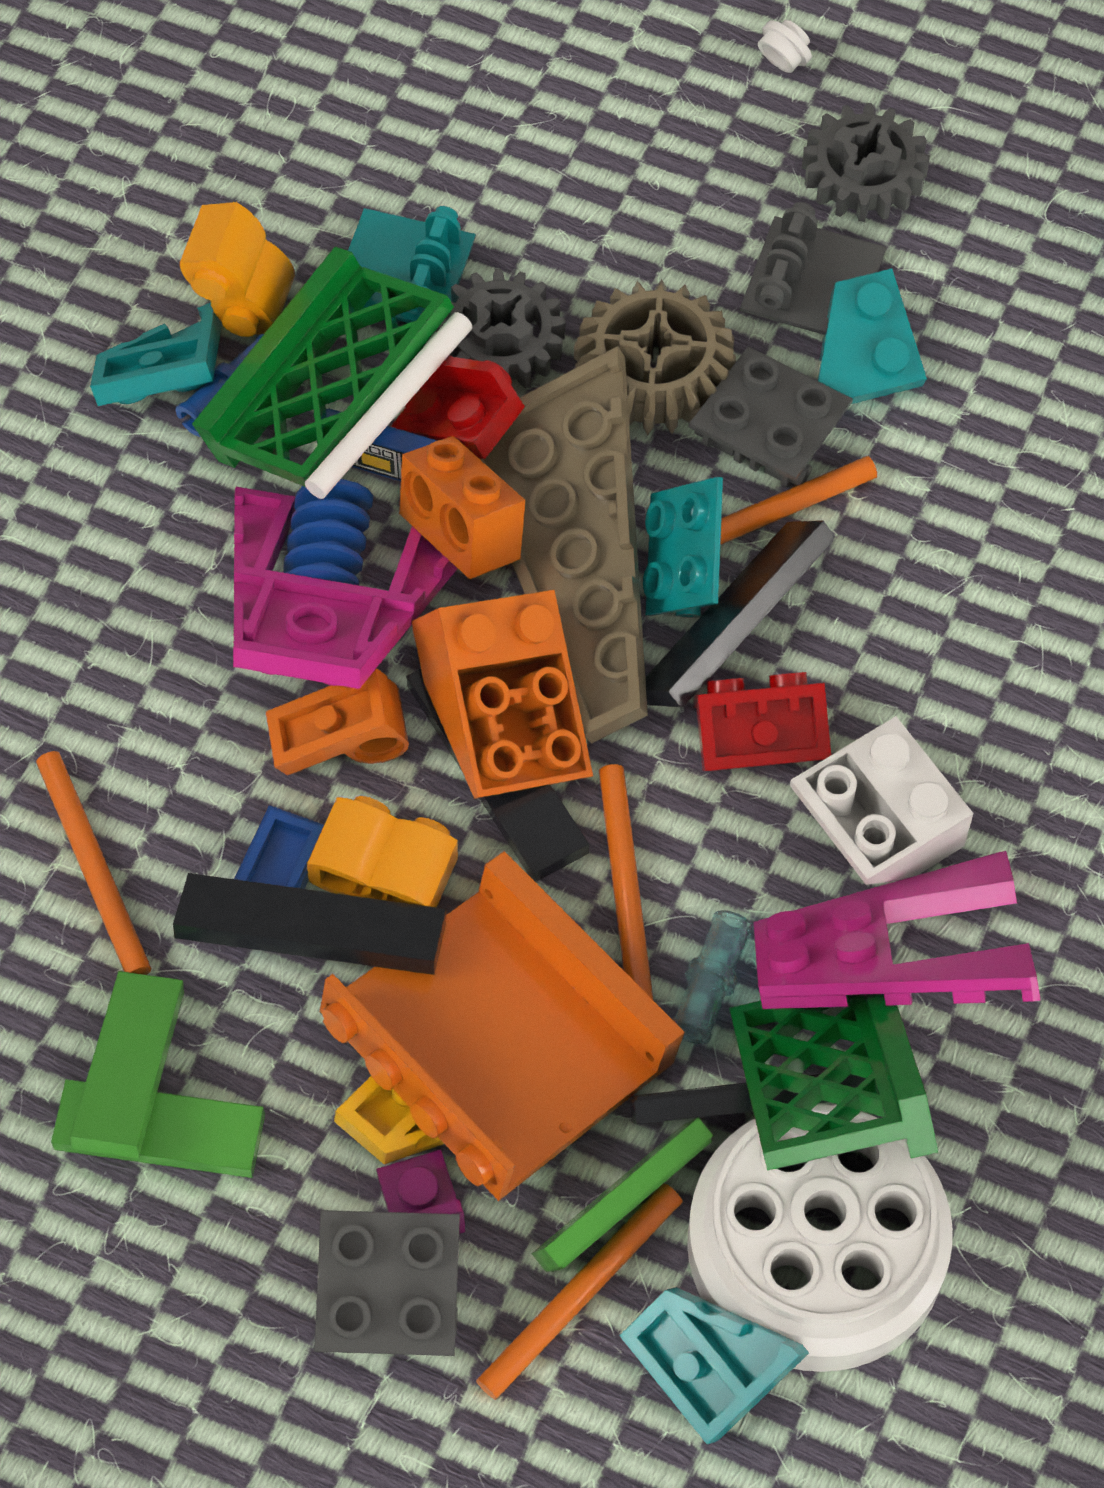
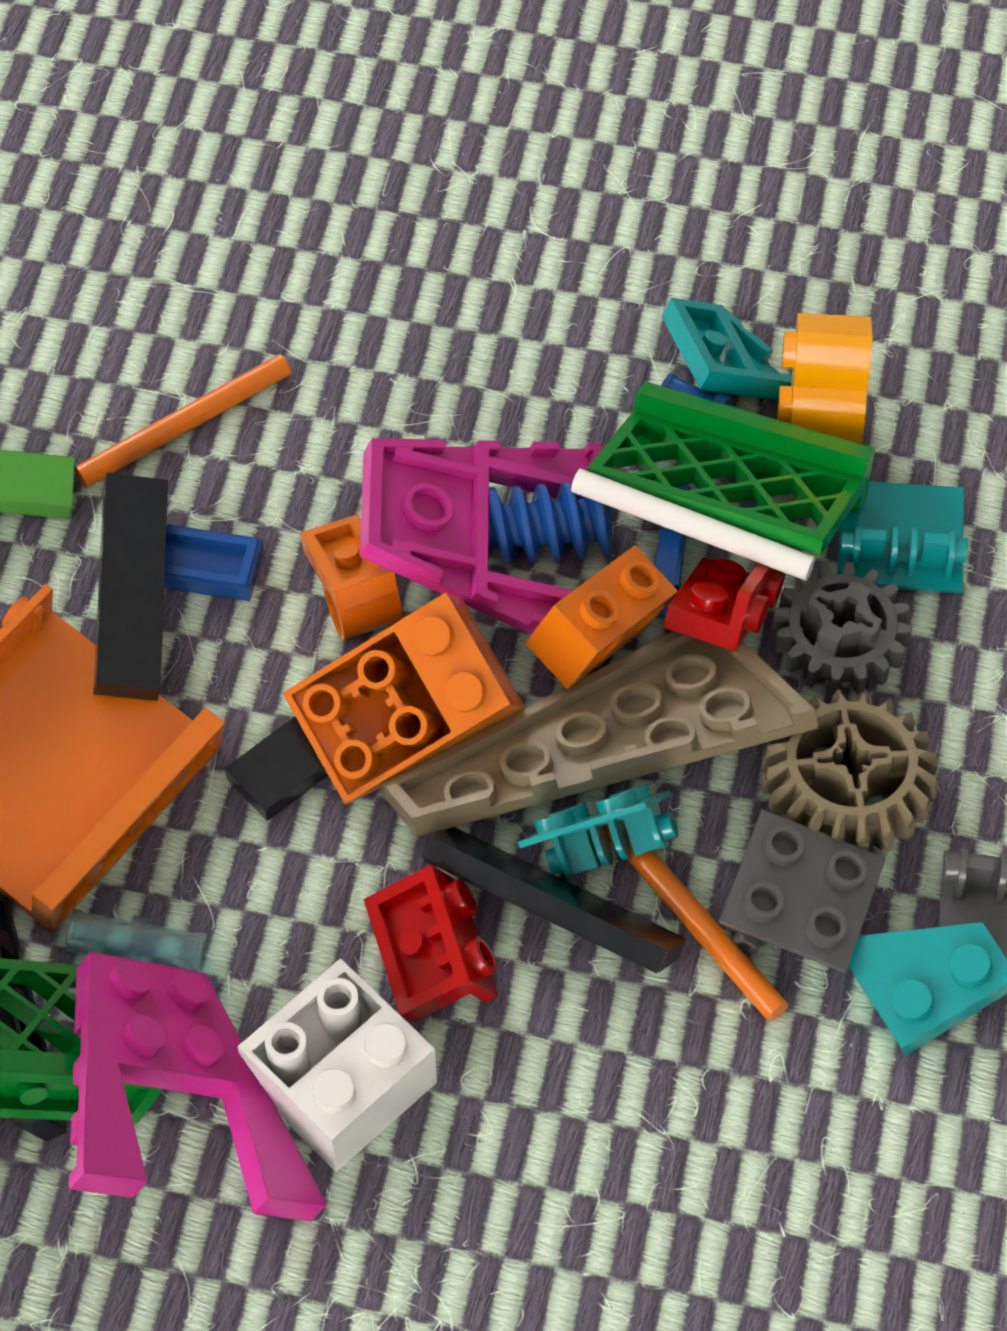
camera: 80 degrees right, 5 degrees down
(382, 857) = (216, 638): light orange brick -> none
(625, 876) = (230, 855): orange bar -> none

